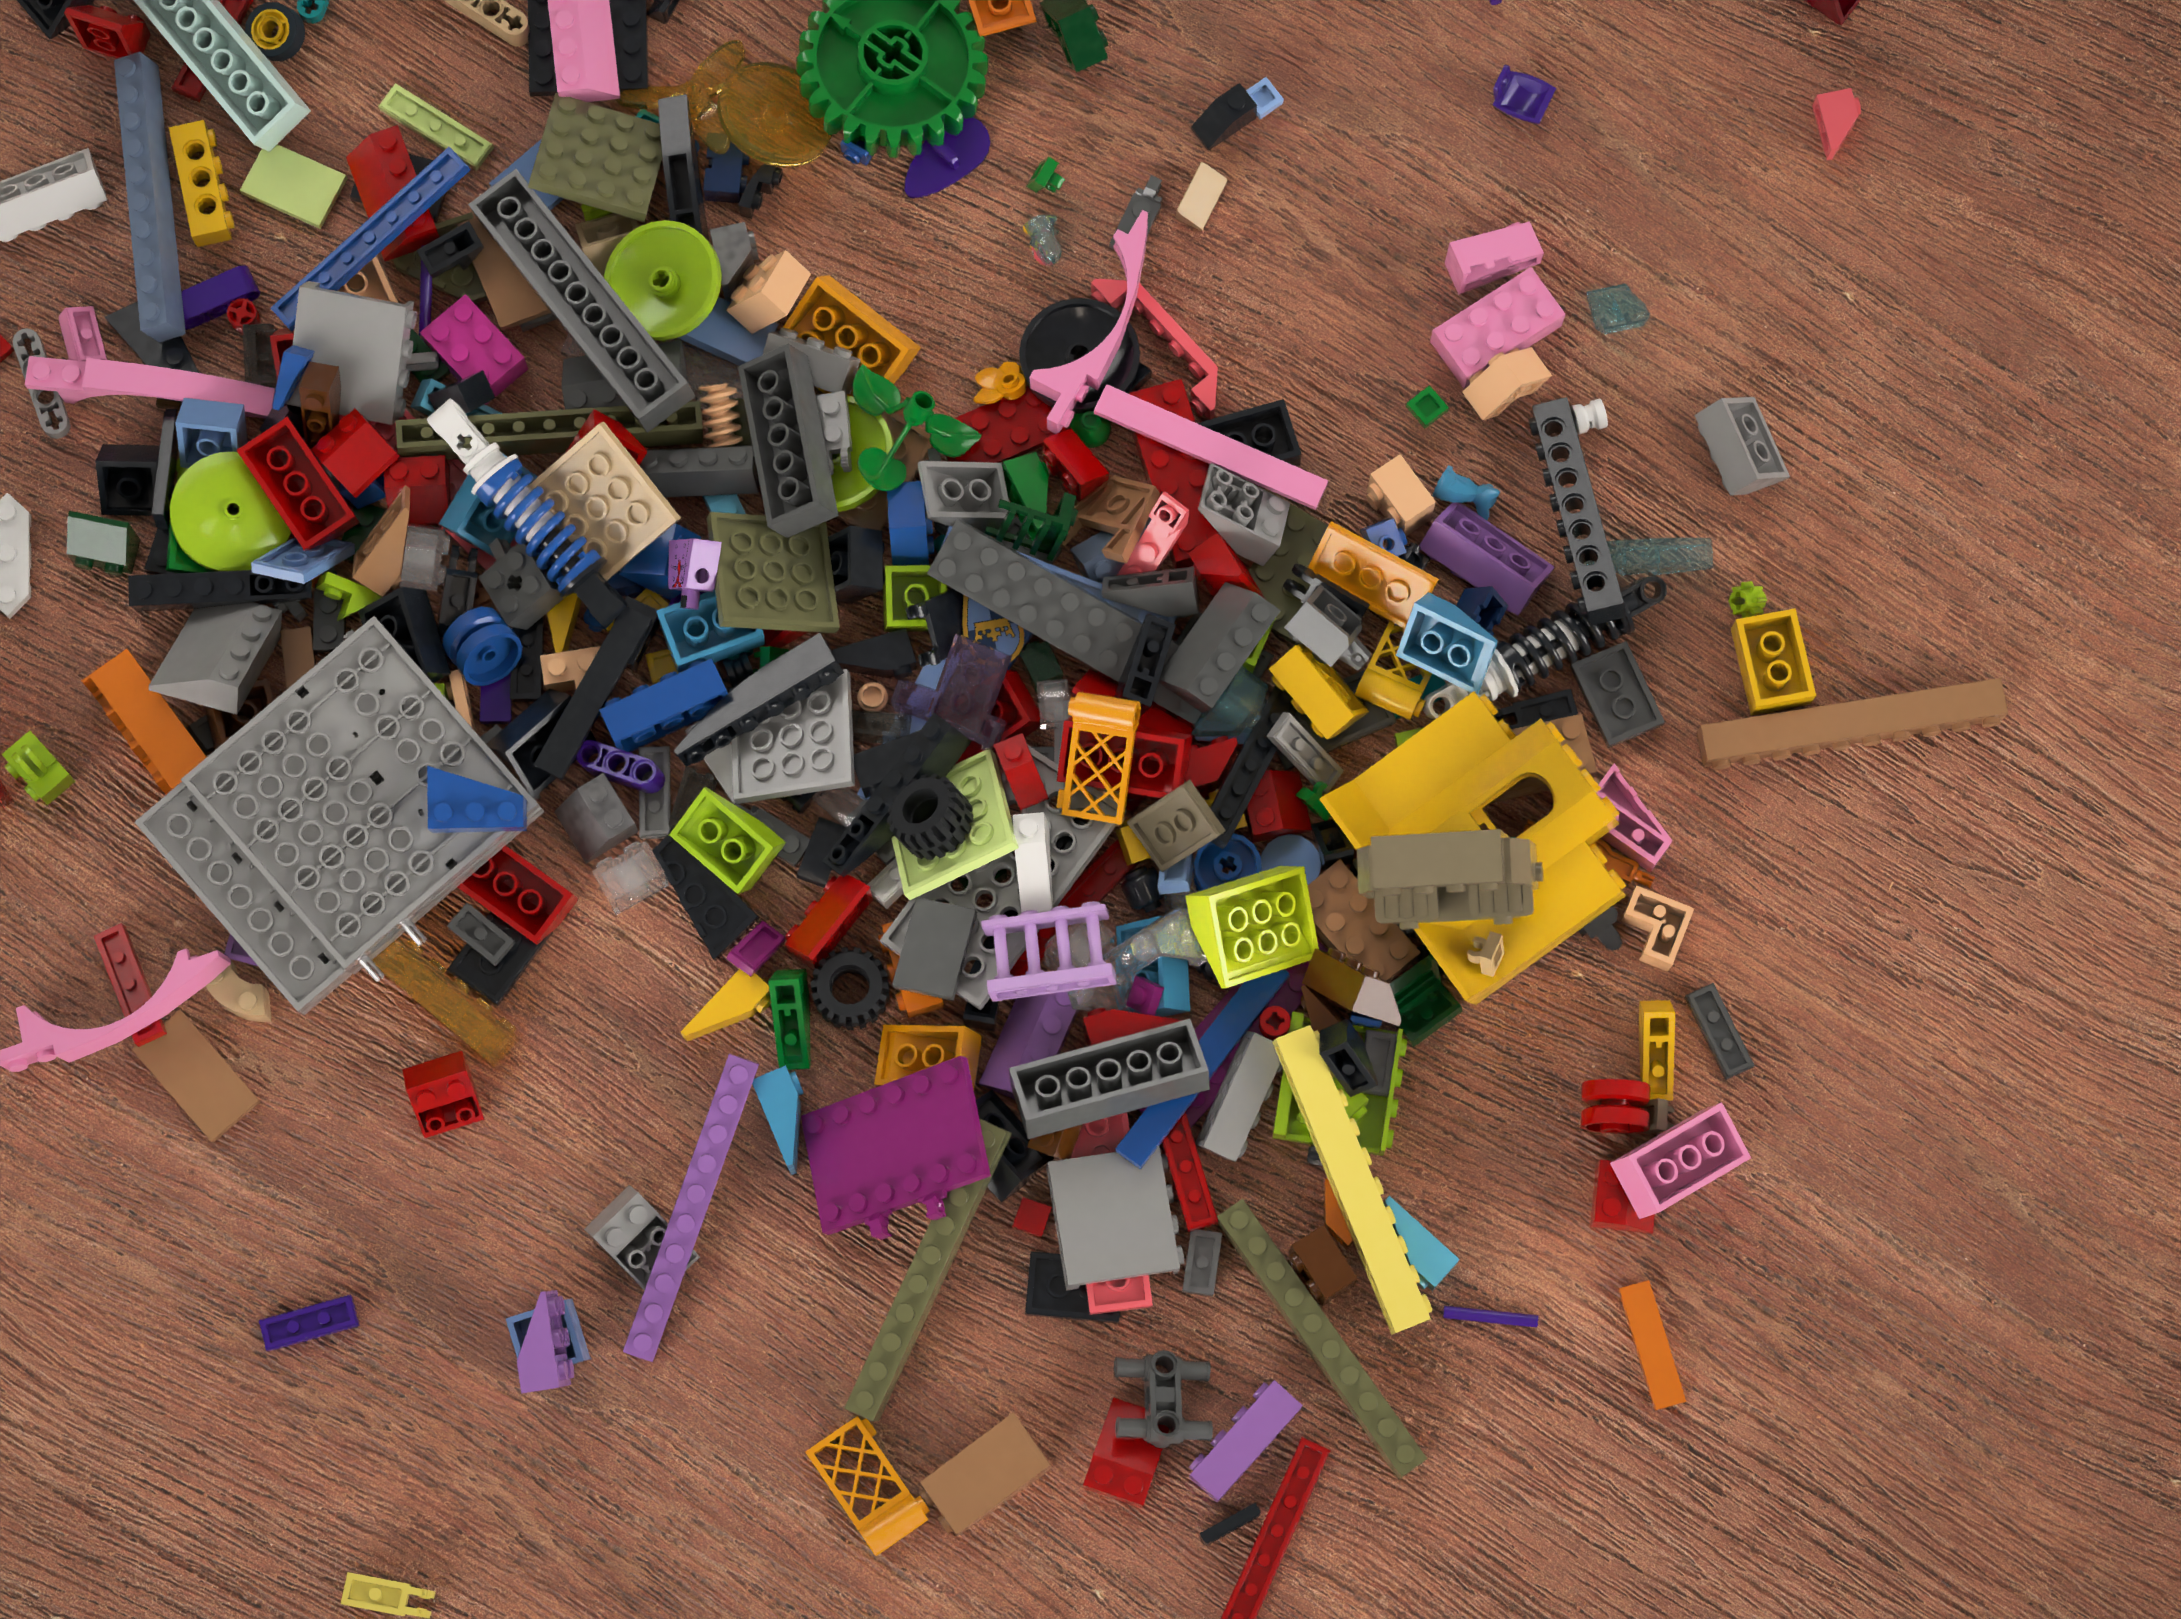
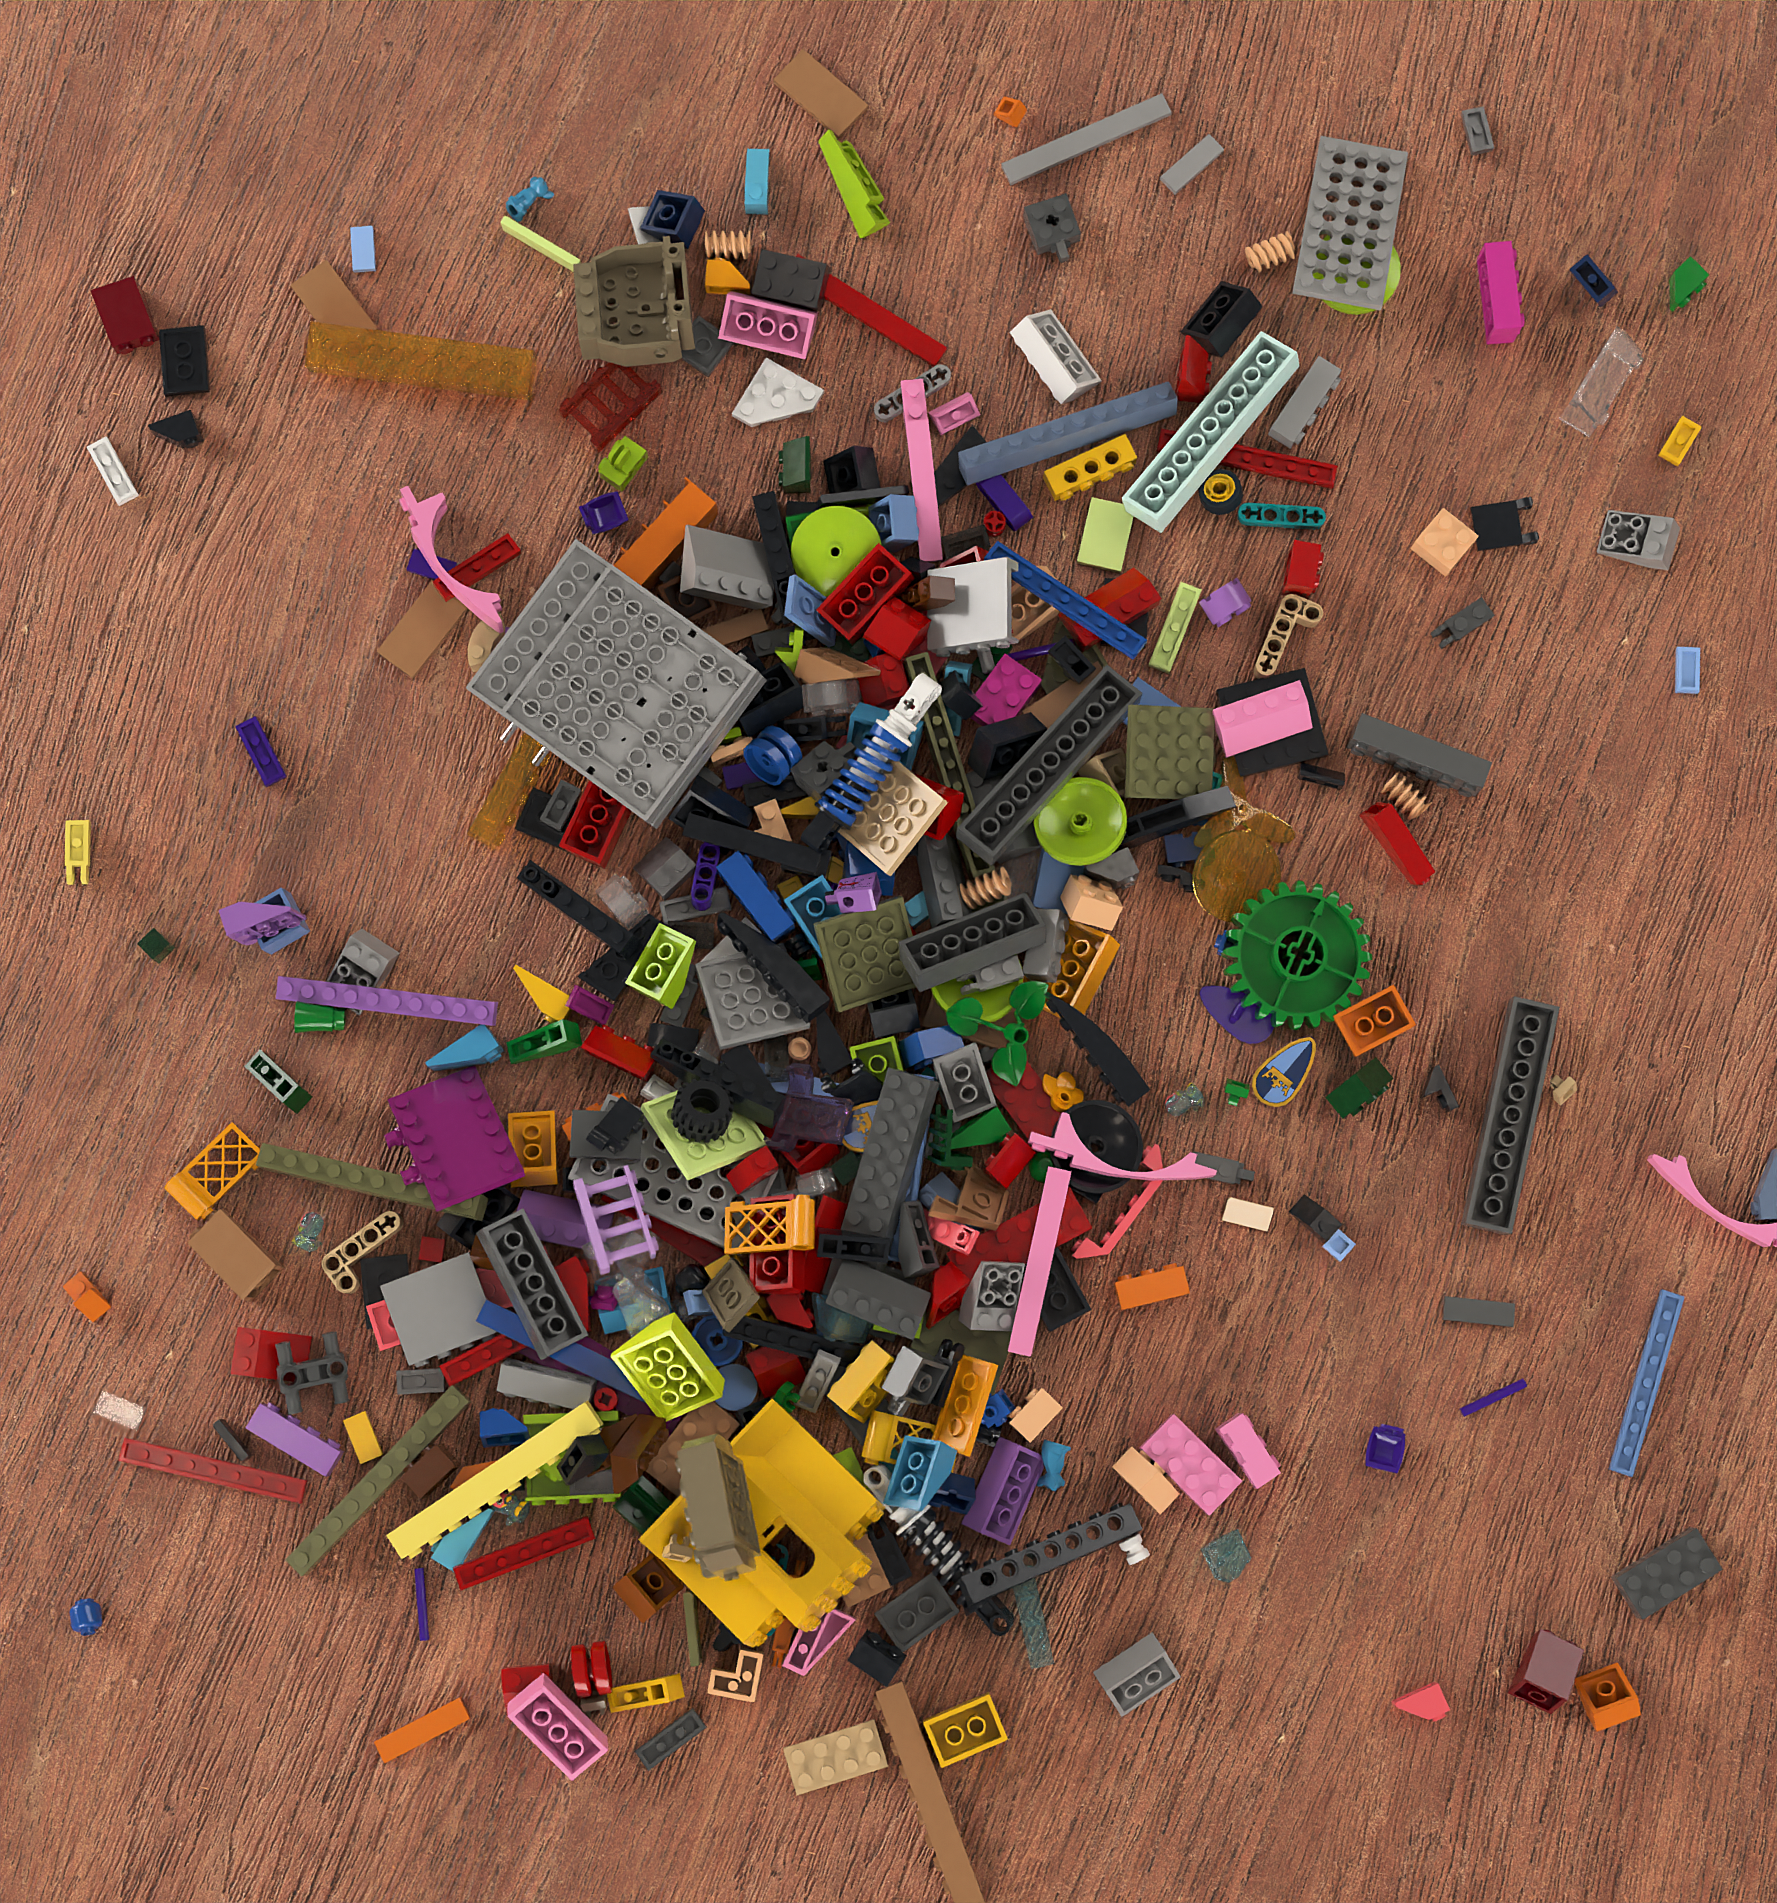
camera: 80 degrees right, 5 degrees up
(99, 803) = (604, 513): none -> dark purple piece
(108, 1060) = (420, 566): none -> dark purple tile
(292, 368) = (947, 567): blue slope -> none
(421, 53) = (1225, 602): none -> medium lavender brick
(442, 1094) = (440, 805): red slope -> none
(471, 806) = (630, 774): blue wedge -> none
(542, 351) = (1003, 744): none -> black brick
(543, 1509) = (156, 945): none -> clear green brick
(627, 938) = (579, 910): none -> black slope
(691, 1308) = (318, 1018): none -> green plant
(764, 1377) = (278, 1081): none -> dark green slope
(850, 962) = (559, 1066): black tyre -> none
(927, 926) = (617, 1127): none -> black hinge
(962, 319) = (1101, 1052): none -> black slope
(972, 1372) = (309, 1229): none -> clear light blue animal
(1009, 1303) = (365, 1247): none -> tan beam
(1033, 861) = (682, 1194): white slope -> none
(1035, 113) = (1284, 1072): none -> shield
(1260, 1353) = (363, 1437): none -> yellow tile
(1268, 328) = (1151, 1286): none -> orange brick
(1285, 1165) = (501, 1429): none -> blue slope
(1391, 1171) = (513, 1507): none -> clear light blue animal
(1427, 406) = (1113, 1421): green tile -> none
(1450, 1168) = (523, 1553): none -> red tile
(1524, 1020) = (648, 1587): none -> dark orange slope
(1586, 969) = (692, 1626): none -> olive tile
(1665, 750) = (877, 1657): none -> black brick
(1747, 599) = (1011, 1700): lime gear -> none
(1778, 831) = (835, 1757): none -> tan plate

